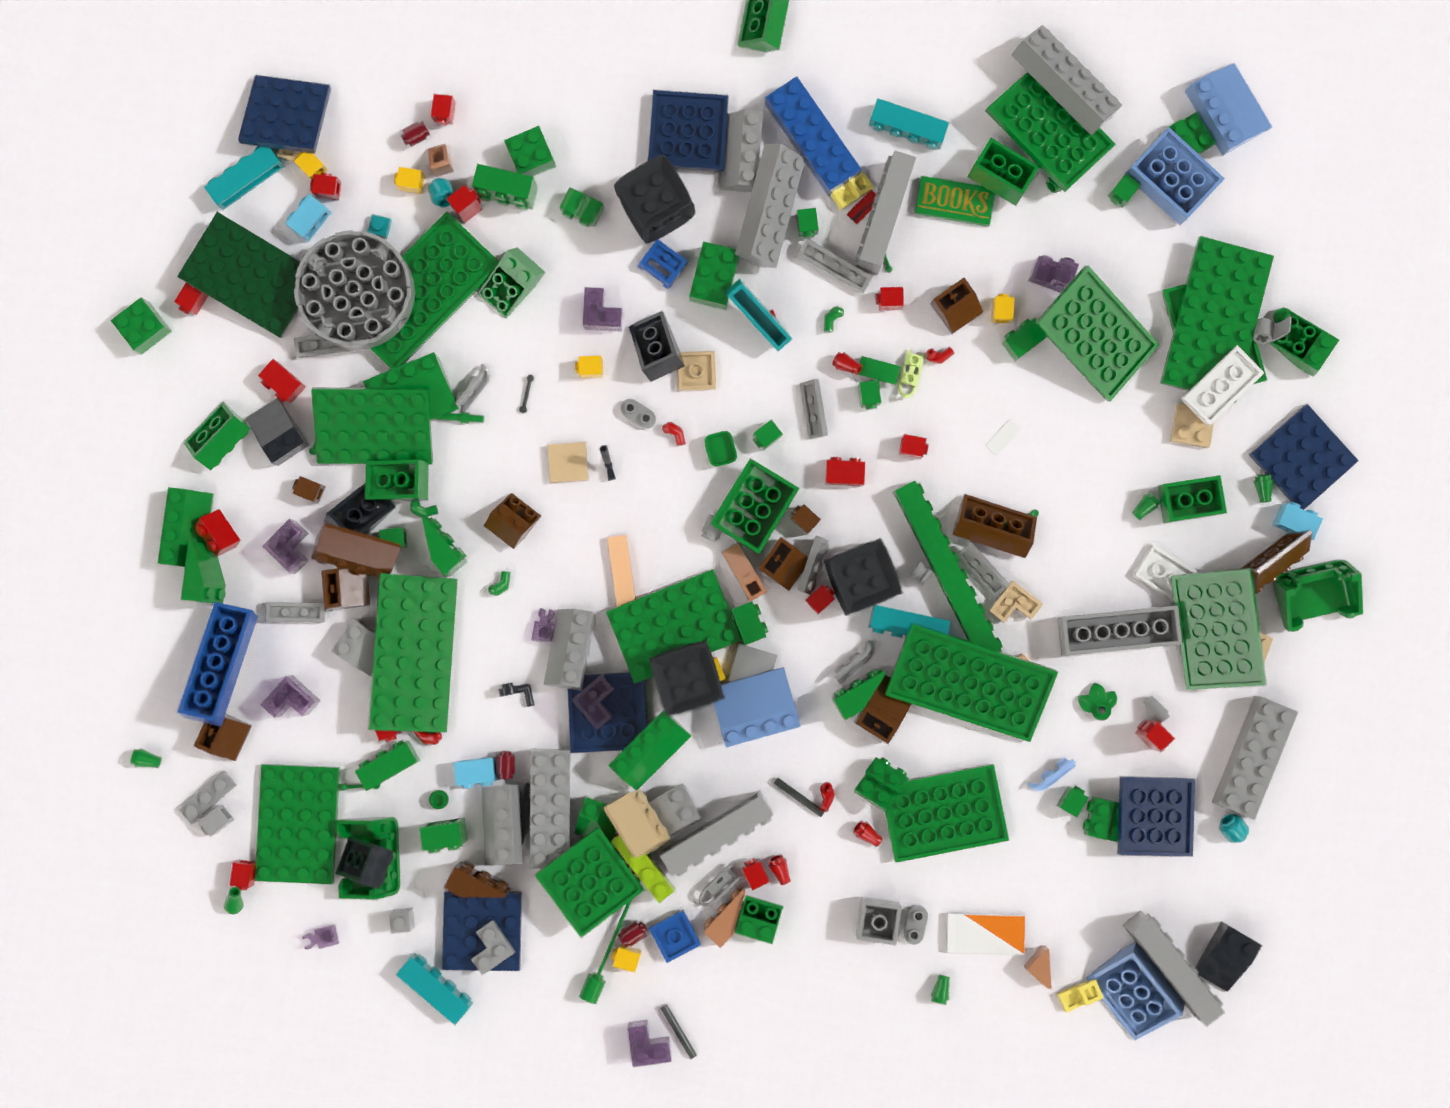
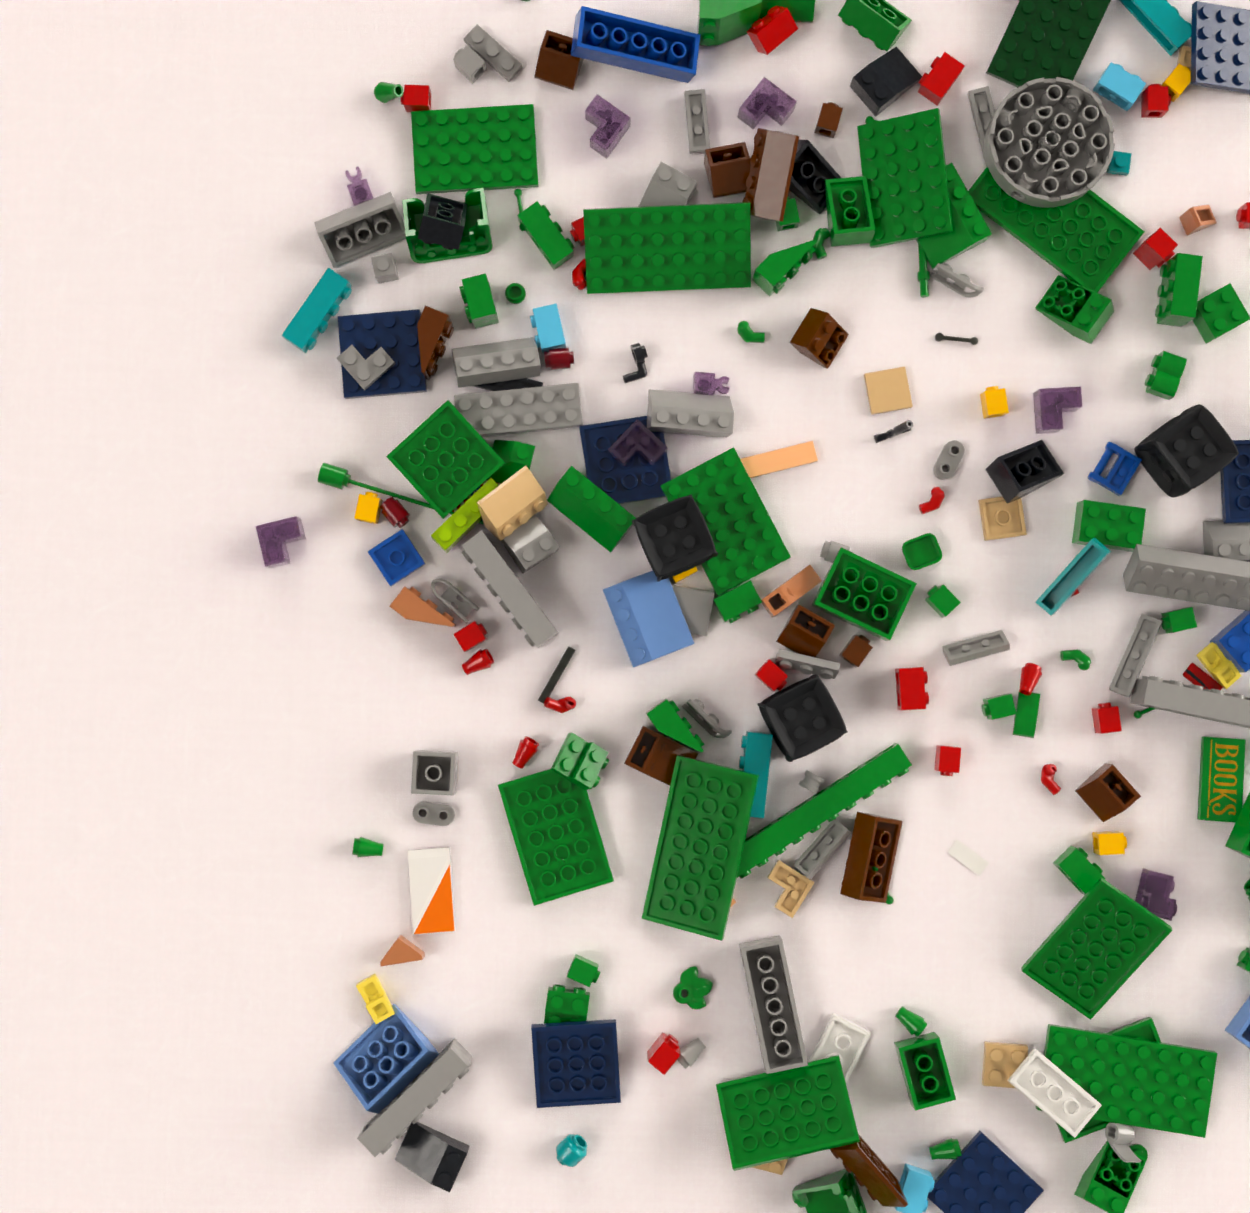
camera: 80 degrees right, 0 degrees up
(362, 939) = (361, 229): none -> light grey slope
(409, 180) = (1173, 188): yellow brick -> none
(415, 133) = (1224, 188): dark red brick -> none
(439, 191) = (1166, 220): teal head -> none
(678, 1031) = (296, 572): pearl dark grey bar -> none
(758, 919) = (423, 644): green slope -> none
(909, 377) = (1021, 749): yellowish green piece -> none
(1051, 777) = (605, 944): light blue piece -> none
(1254, 757) = (651, 1166): light grey brick -> none

